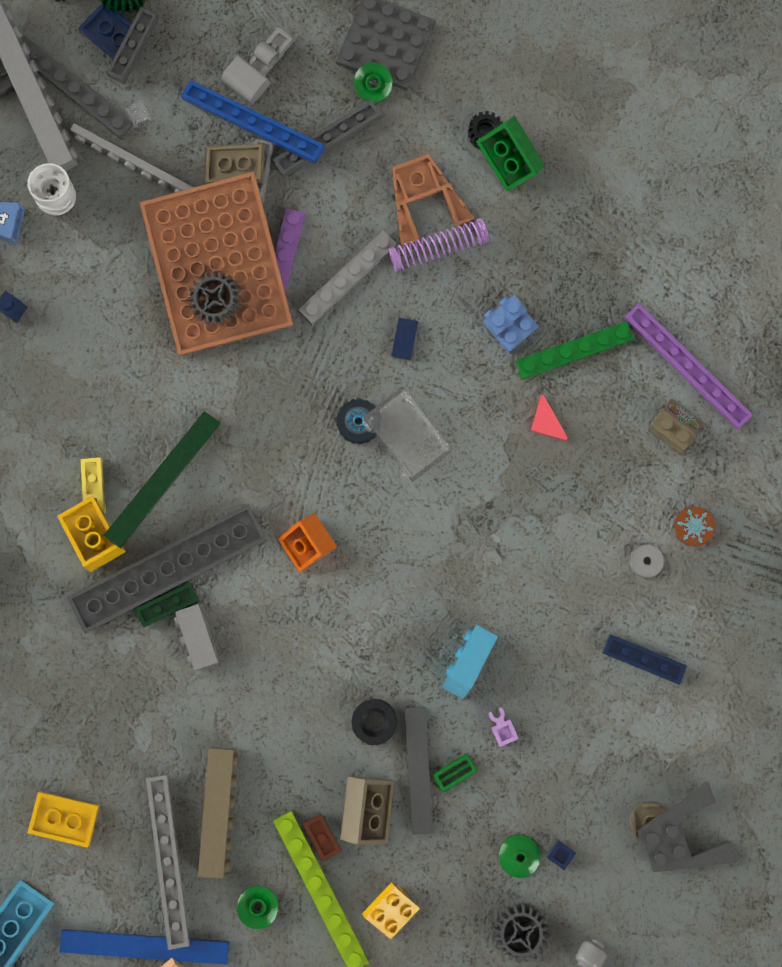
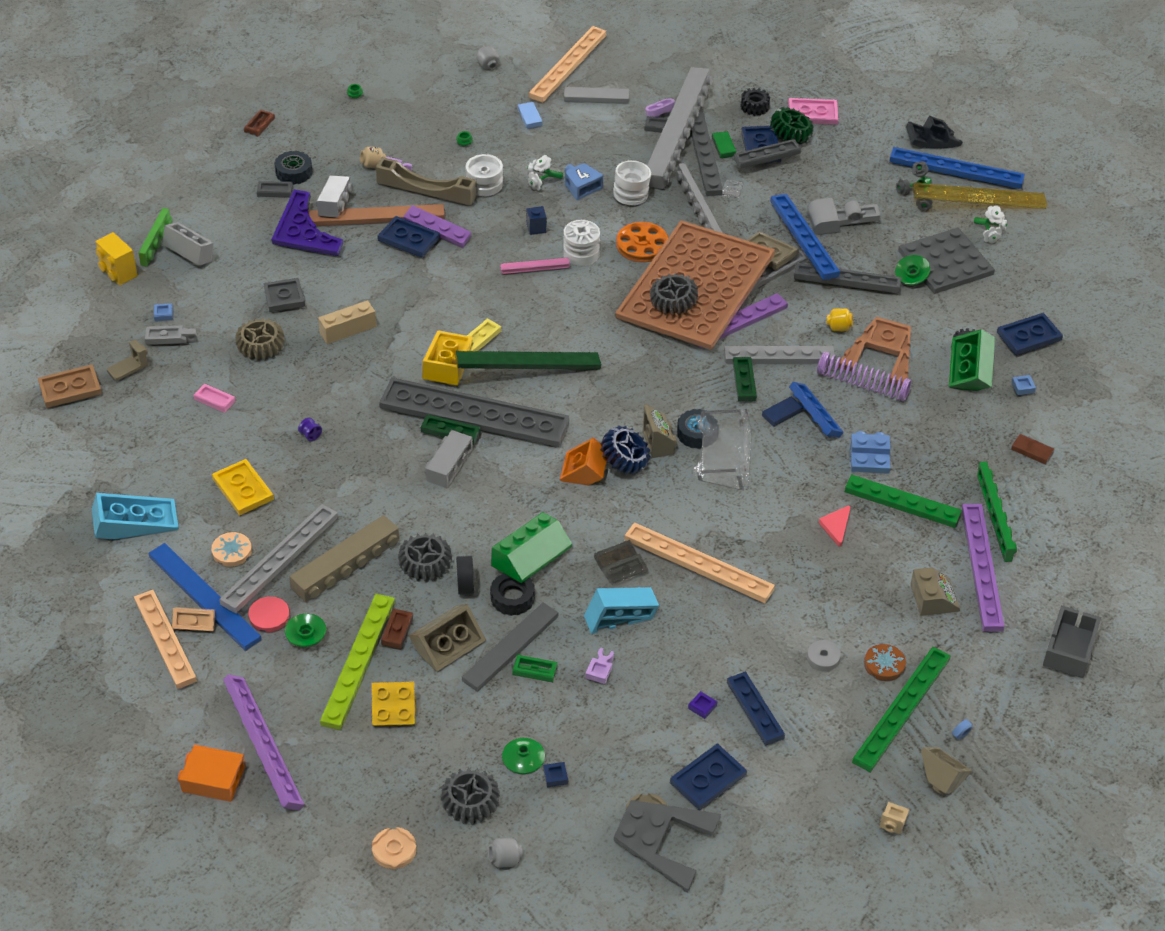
camera: 40 degrees right, 35 degrees down
(56, 712) = (310, 429): none -> dark purple wheel
(58, 358) = (537, 265): none -> bright pink axle
(79, 61) = (724, 144): none -> green tile
(86, 304) = (581, 242): none -> white wheel
(118, 884) = (231, 549): none -> light nougat tile
(127, 252) = (640, 241): none -> orange wedge
(211, 915) = (269, 614): none -> coral tile
(279, 760) = (424, 556): none -> dark grey gear
(328, 745) = (465, 575): none -> black tyre
(336, 458) = (658, 433): none -> dark tan slope
(341, 508) = (623, 445): none -> dark blue gear
(346, 332) = (744, 379): none -> dark green plate
(353, 672) = (530, 547): none -> slope
(365, 195) = (840, 319): none -> yellow head
(424, 613) = (620, 562): none -> clear smoke slope
(431, 315) = (815, 408): none -> blue plate
(482, 559) = (700, 562): none -> light nougat plate
(522, 73) = (1029, 333): none -> dark blue plate
(564, 138) = (1023, 385): none -> medium blue plate
(602, 689) = (702, 705): none -> dark purple tile
(624, 203) = (1032, 449): none -> copper tile
(648, 295) = (996, 513): none -> green plate
(666, 752) = (708, 776): none -> dark blue plate
(740, 558) = (901, 709): none -> green tile

